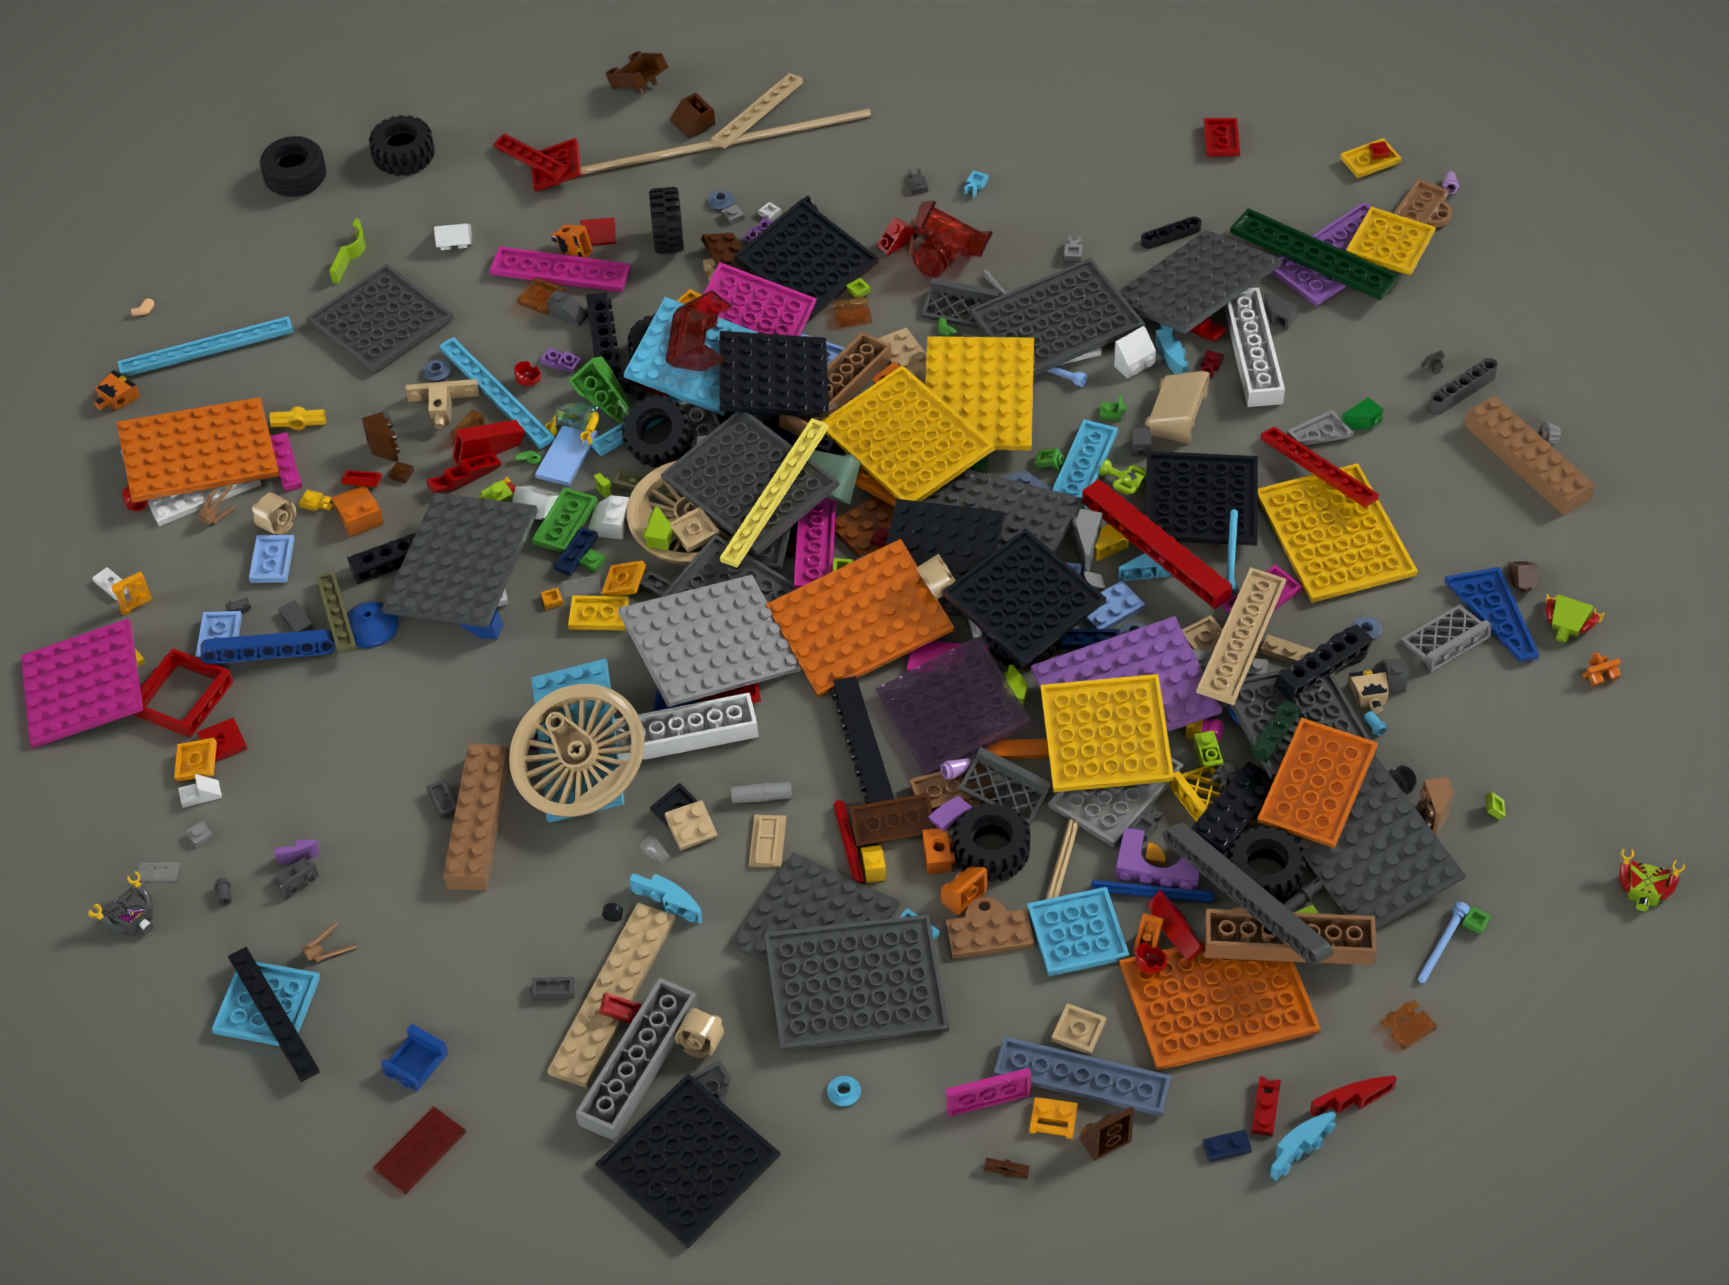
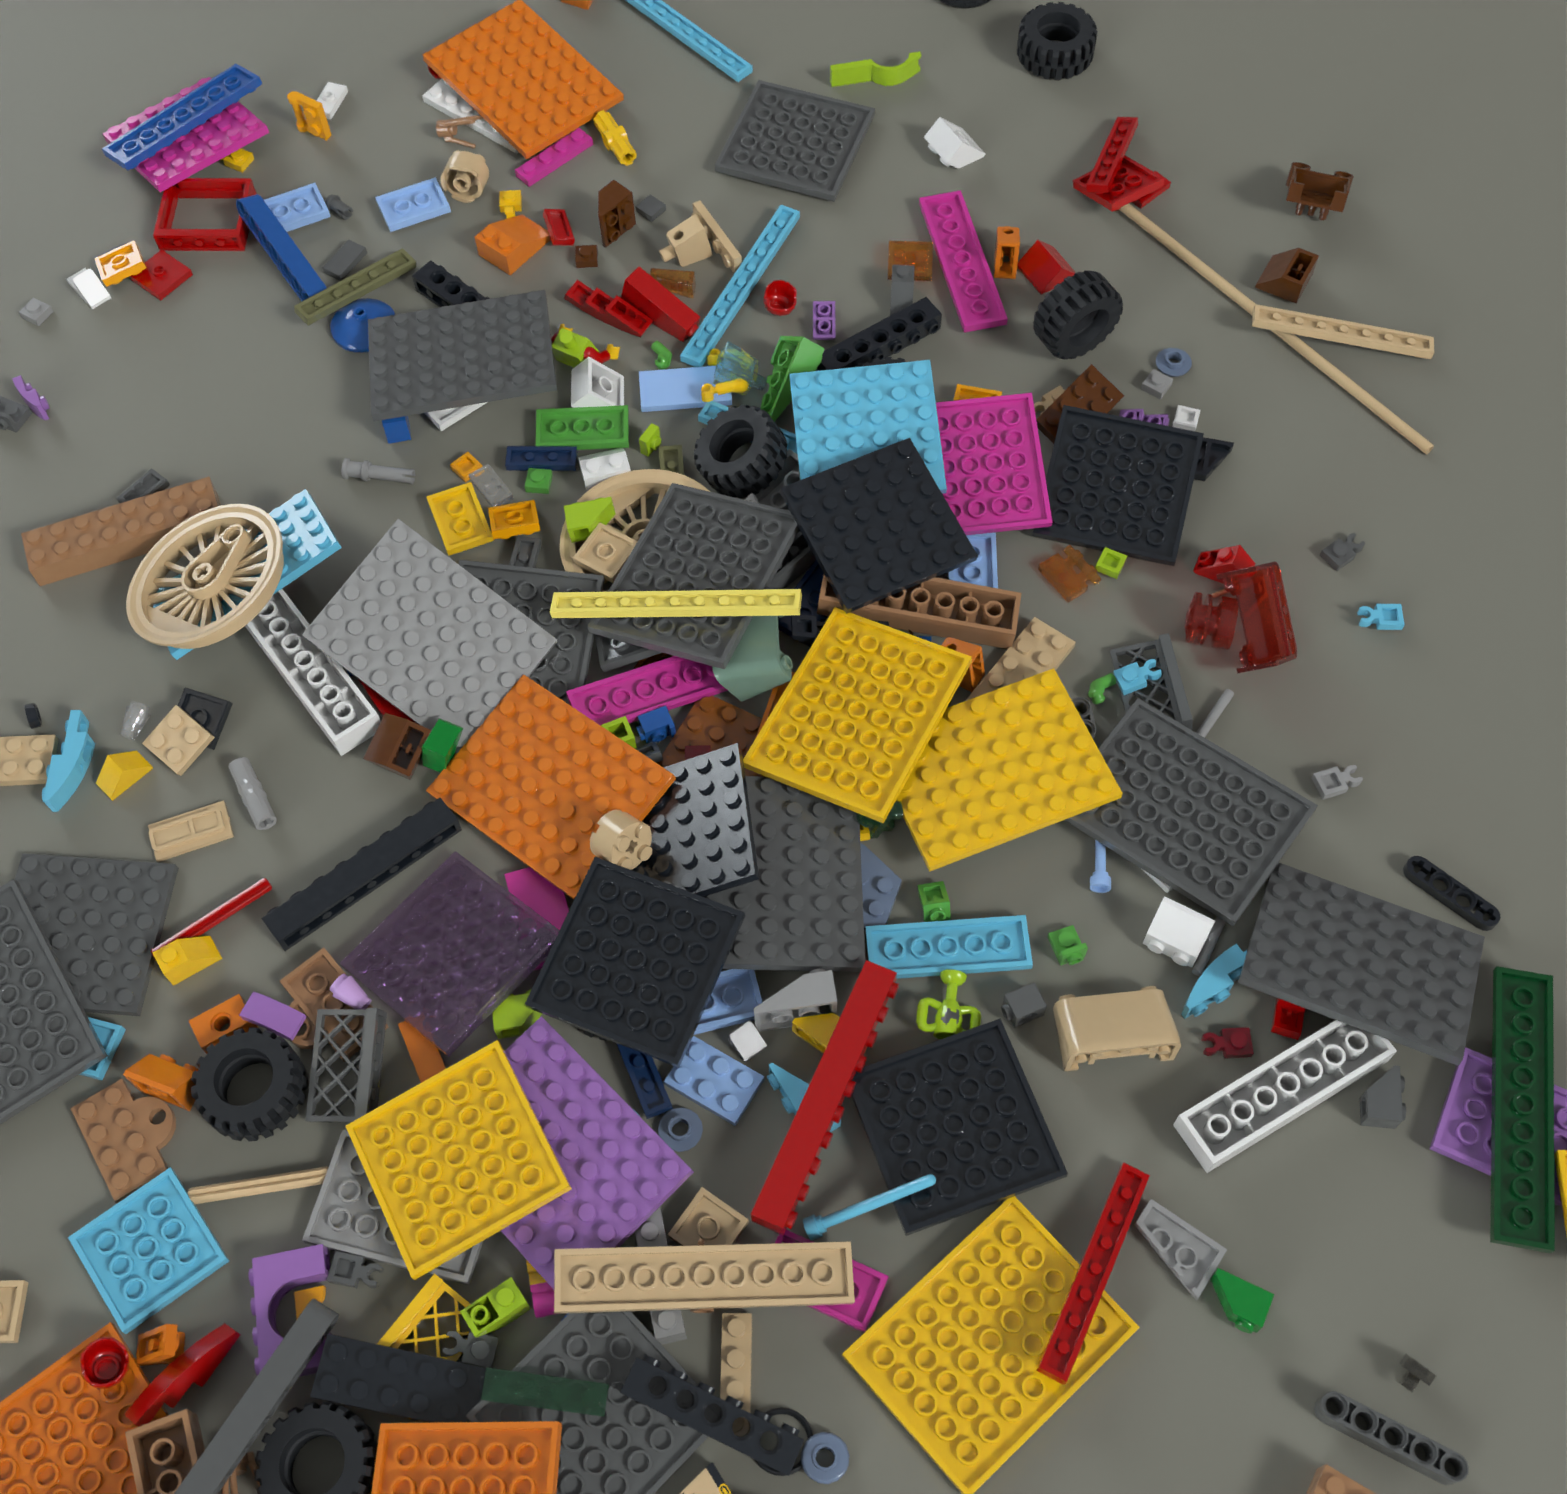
camera: 65 degrees right, 10 degrees up
(74, 671) = (182, 117): none -> blue plate
(442, 373) = (749, 227): sand blue piece -> none
(517, 656) = (366, 471): none -> light grey pin
(688, 333) = (878, 411): clear red windscreen -> none
(697, 870) = (121, 772): none -> yellow slope
(778, 692) = (397, 745): none -> reddish brown slope
(793, 669) = (441, 745): none -> green slope
(843, 548) = (655, 725): none -> blue brick
(891, 819) = (249, 951): reddish brown plate -> none
(950, 308) = (1132, 677): none -> medium azure plate
(1150, 891) = (241, 1306): blue axle -> none

